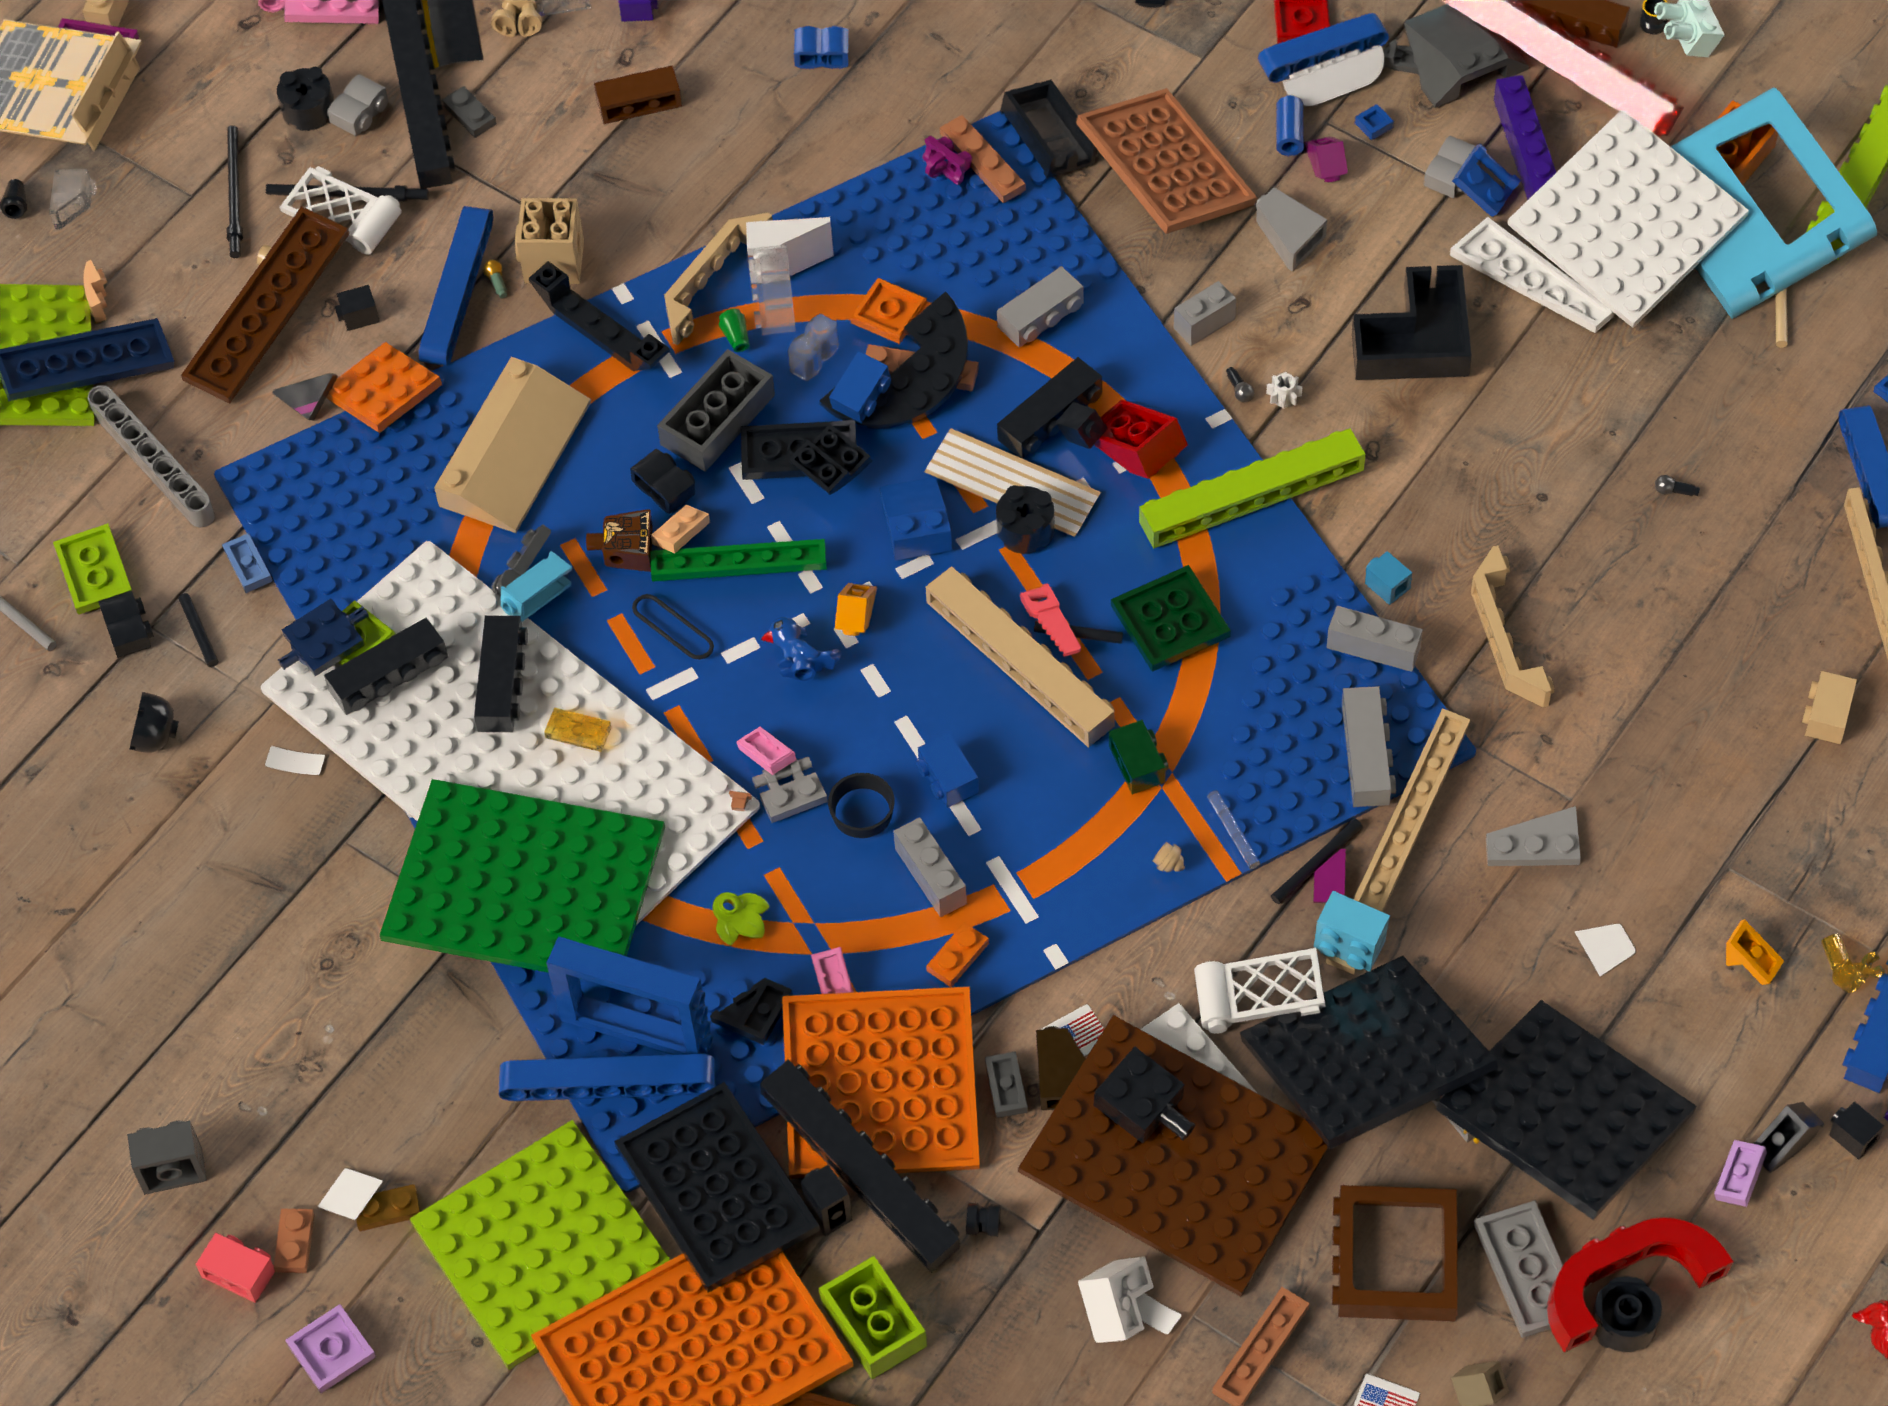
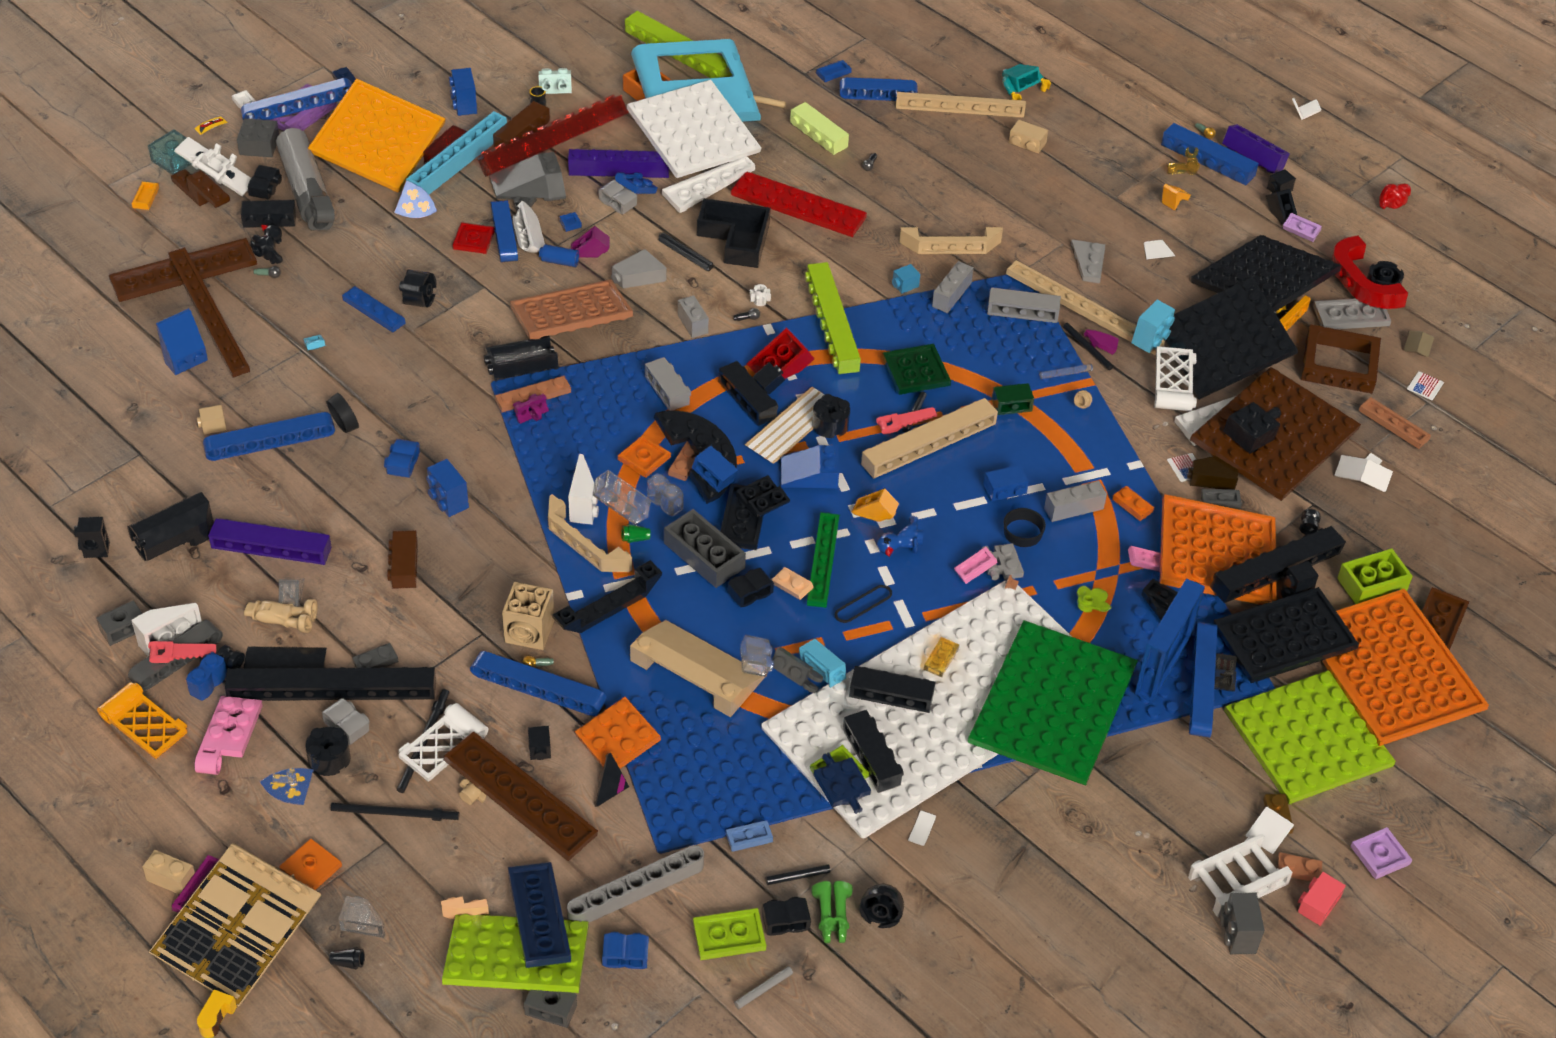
camera: 85 degrees left, 10 degrees down
(54, 464) = (625, 950): none -> blue brick
(114, 677) = (842, 891): none -> bright green piece
(142, 132) = (311, 864): none -> orange plate
(249, 1183) = (1276, 879): none -> white fence
(258, 80) = (289, 785): none -> clear shield
(533, 507) = (756, 656): none -> clear brick
(625, 540) = (795, 612): reddish brown torso -> none
(627, 1111) = (1225, 672): none -> clear smoke slope
(765, 103) = (447, 488): none -> blue brick
(1359, 280) = (686, 251): none -> black axle
(1471, 1161) = (1295, 313): none -> light orange tile
(1530, 408) = (799, 204): none -> red plate
(1728, 398) = (819, 128): none -> yellowish green brick

